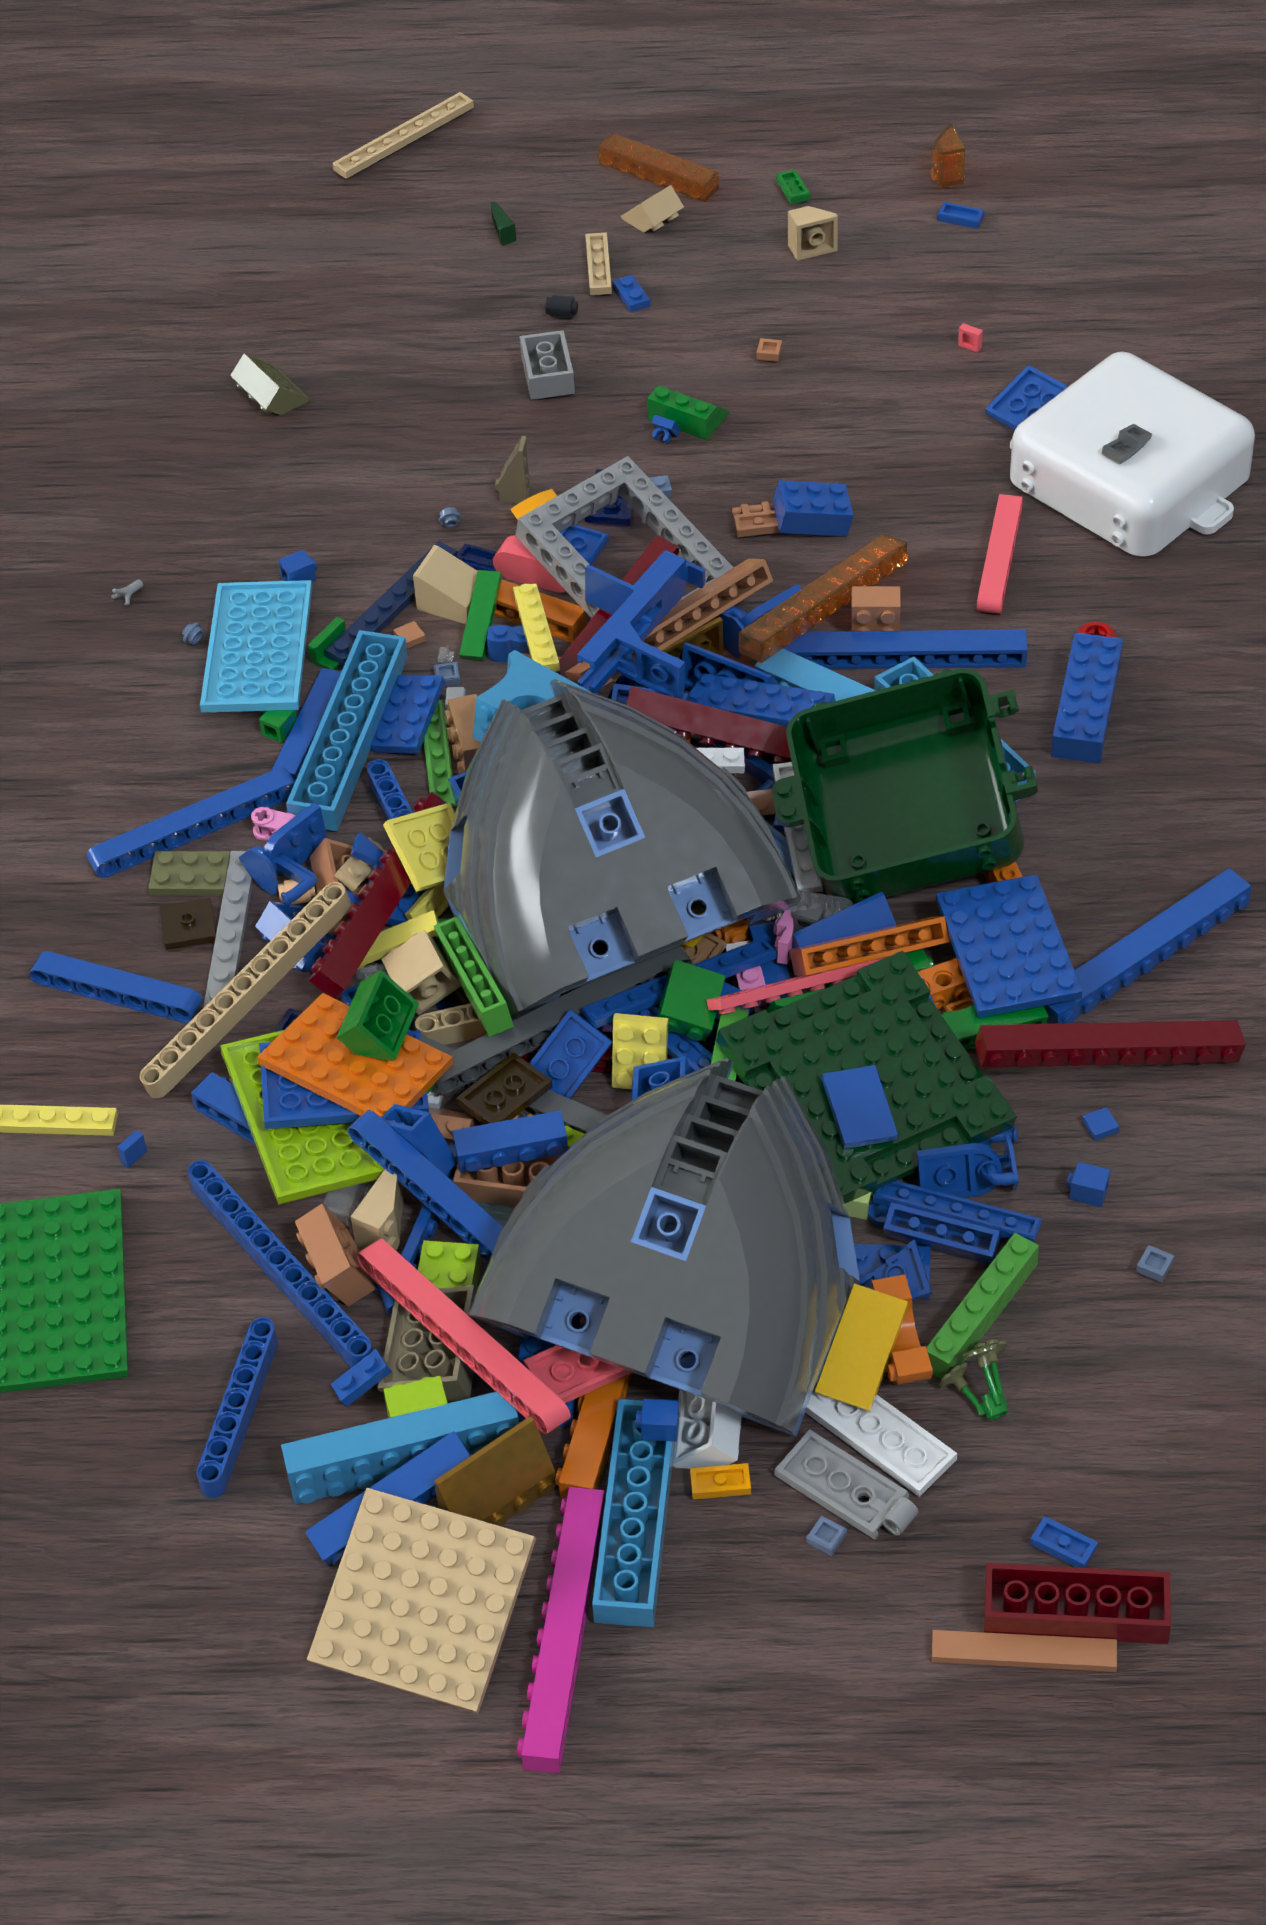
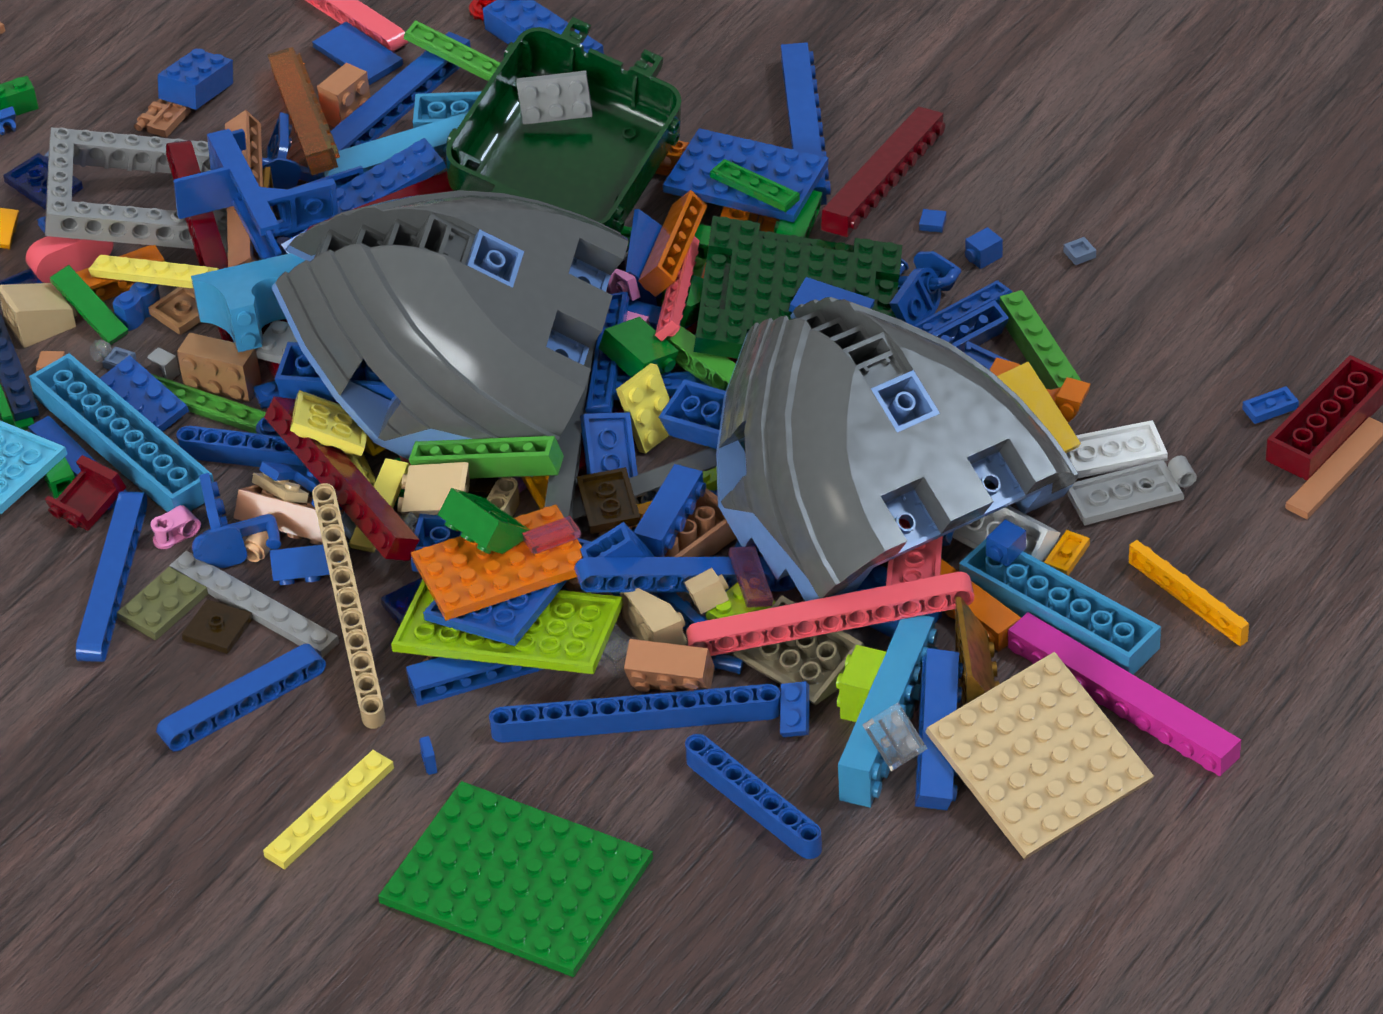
camera: 55 degrees left, 5 degrees down
(265, 751) = (87, 494): none -> dark red panel
(337, 1469) = (894, 736): none -> clear brick
(397, 1074) = (551, 535): none -> clear pink tile
(436, 1226) = (707, 590): none -> tan brick
(473, 1252) = (750, 576): none -> clear pink tile
(738, 1622) = (1189, 593): none -> light orange plate
(826, 1535) = (1159, 522): sand blue tile -> none
(941, 746) = (554, 97): none -> light grey plate
(955, 590) = (354, 47): none -> blue tile
(985, 959) = (755, 185): none -> green tile
(994, 1403) = (1127, 383): plant -> none
(1000, 658) = (451, 50): none -> bright green tile

